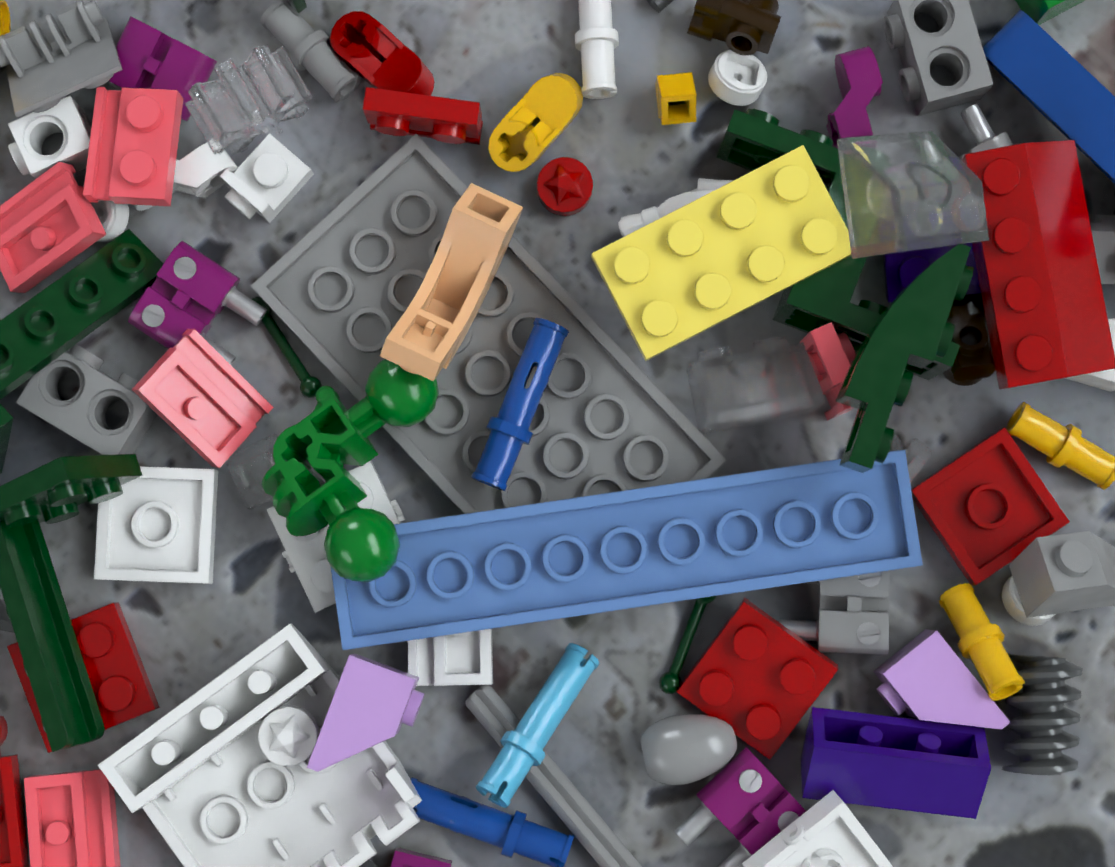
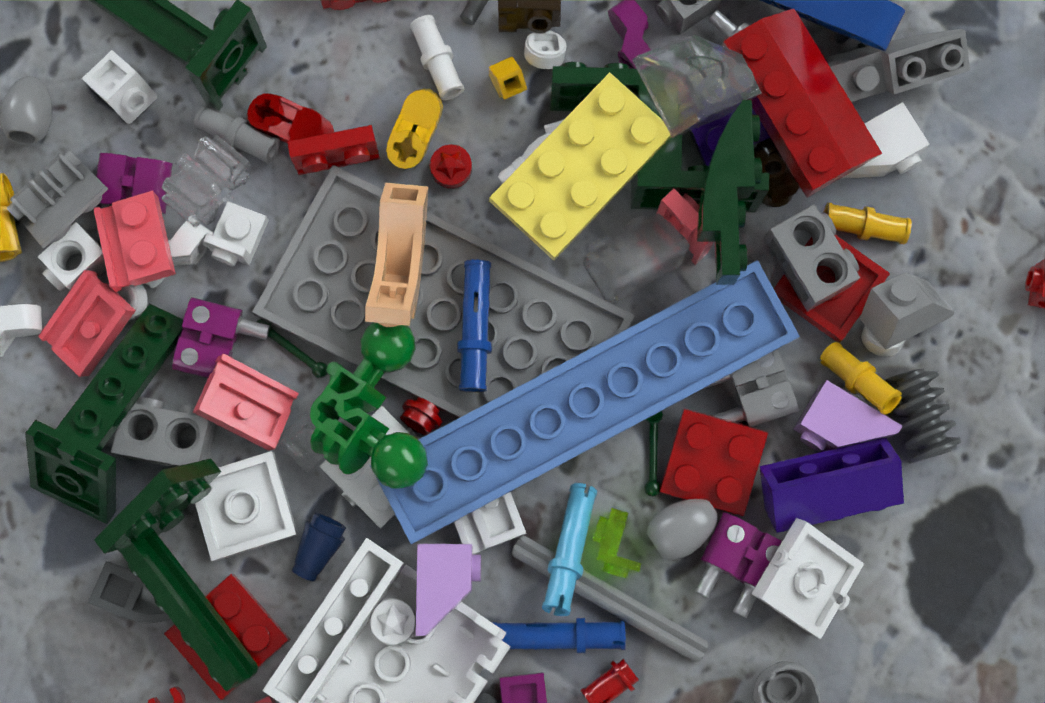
camera: 20 degrees left, 5 degrees down
(231, 606) = (317, 545): none -> dark blue cone
(414, 491) = (421, 416): none -> red plate
(593, 723) = (609, 535): none -> clear neon green bracket
(960, 471) = (801, 261): none -> light grey brick

